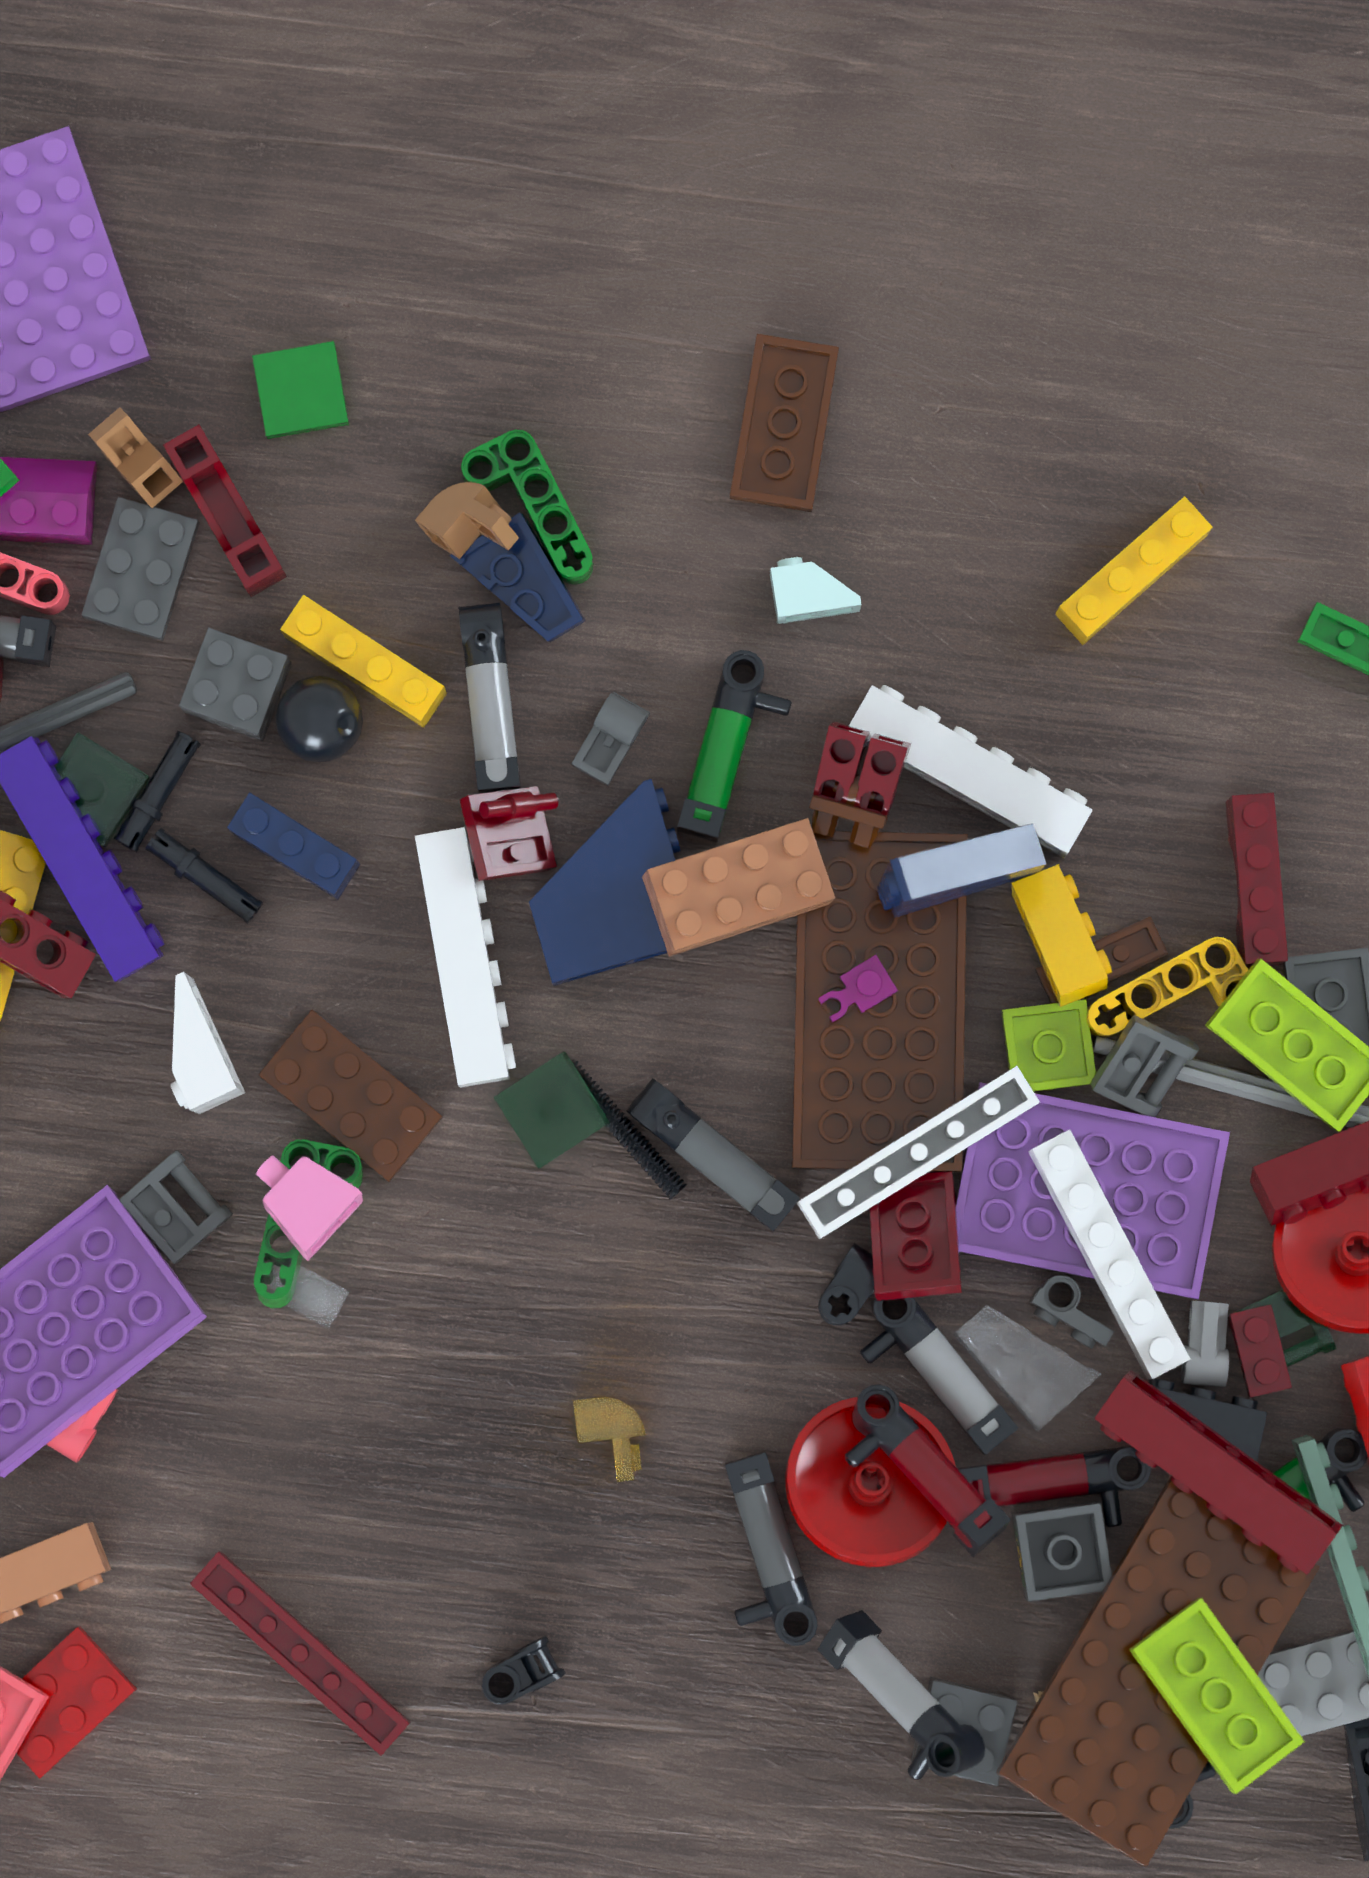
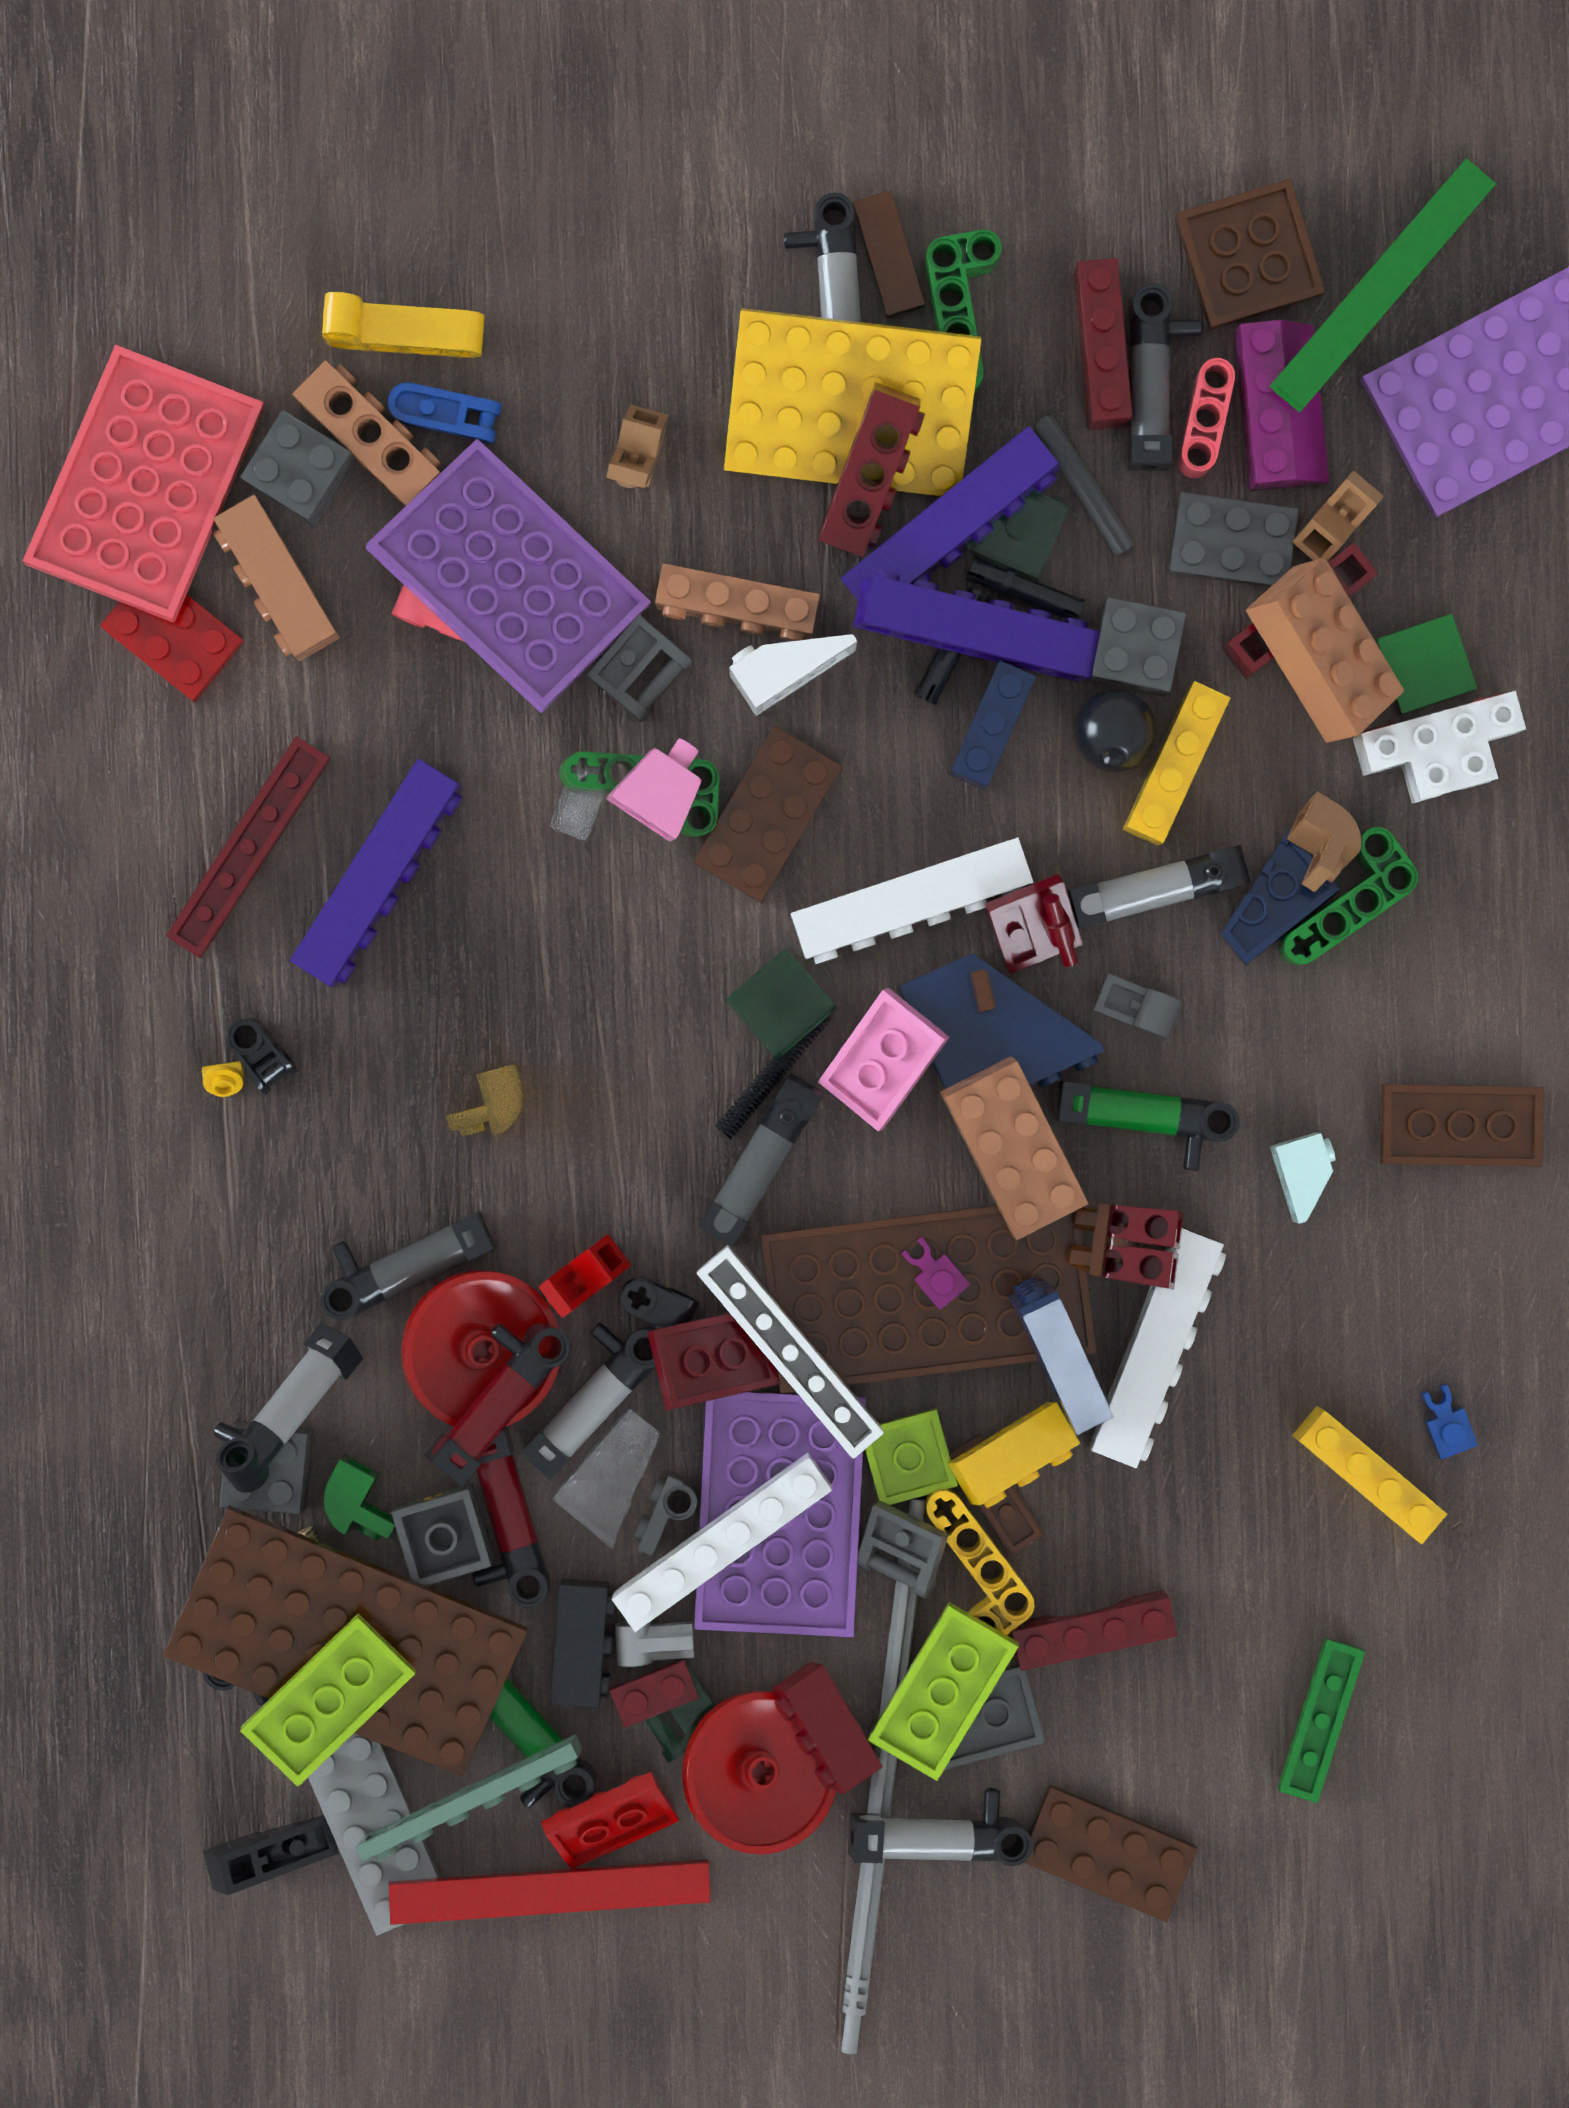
camera: 85 degrees right, 5 degrees up
(122, 1093) = (737, 602): none -> nougat brick
(189, 847) = (975, 627): none -> dark purple brick
(269, 490) = (1325, 650): none -> nougat brick
(350, 1519) = (376, 874): none -> dark purple brick
(390, 385) = (1442, 748): none -> white piece
(542, 1716) = (223, 1078): none -> yellow plate
(569, 895) = (982, 990): none -> reddish brown tile
(626, 1010) = (883, 1059): none -> bright pink plate
(808, 1359) = (584, 1276): none -> red brick
(1010, 1650) = (346, 1501): none -> green brick
(1097, 480) = (1449, 1428): none -> blue plate
(1218, 1473) = (533, 1672): dark red brick -> none

